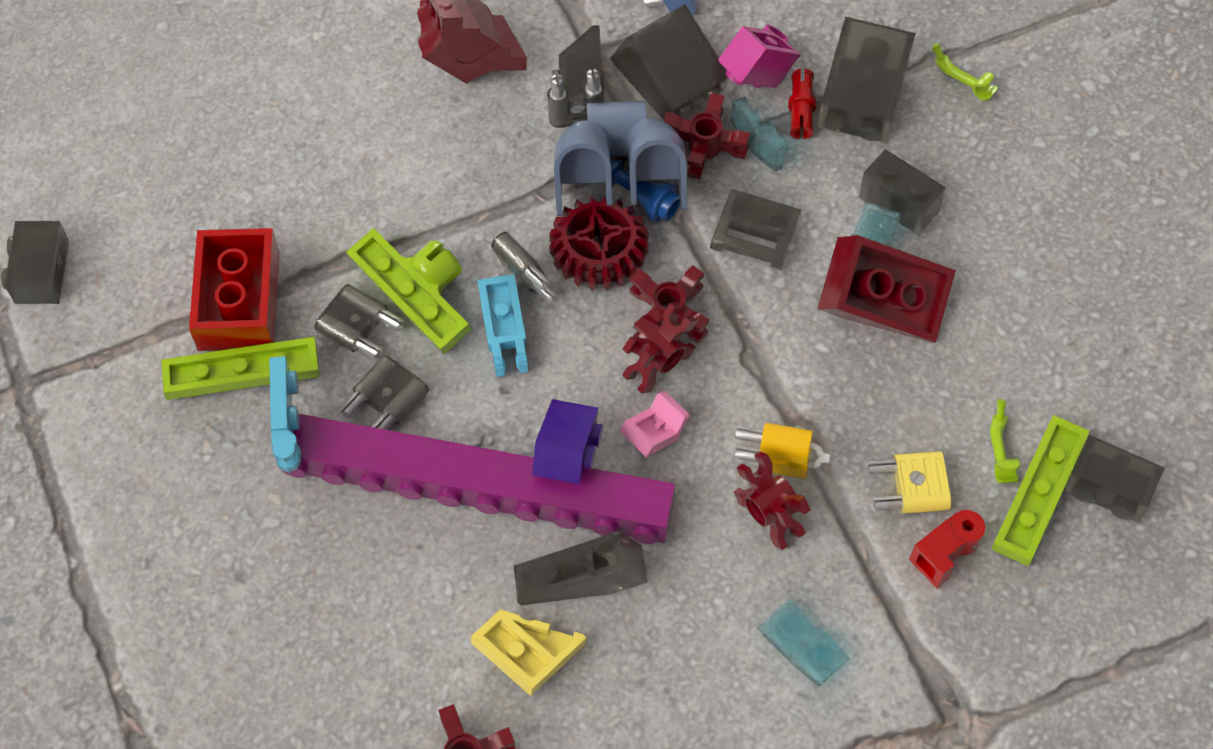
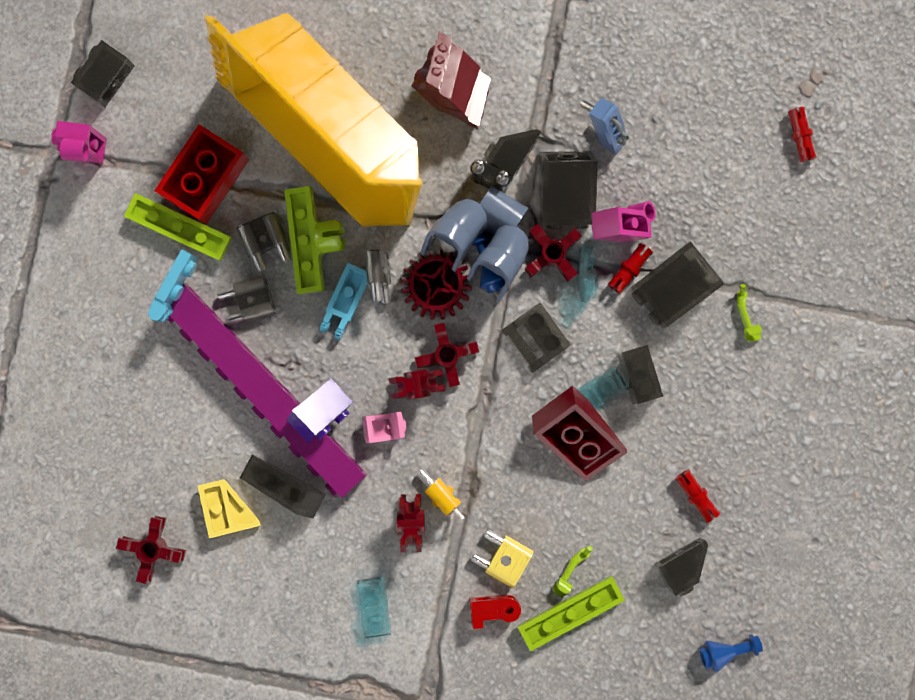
camera: 30 degrees right, 25 degrees up
(55, 339) = (79, 142): none -> dark pink hinge
(345, 133) = (320, 118): none -> yellow piece
(1071, 276) = (697, 496): none -> red pin
(1114, 479) = (616, 638): clear smoke brick -> none
(1122, 357) = (683, 567): none -> clear smoke slope

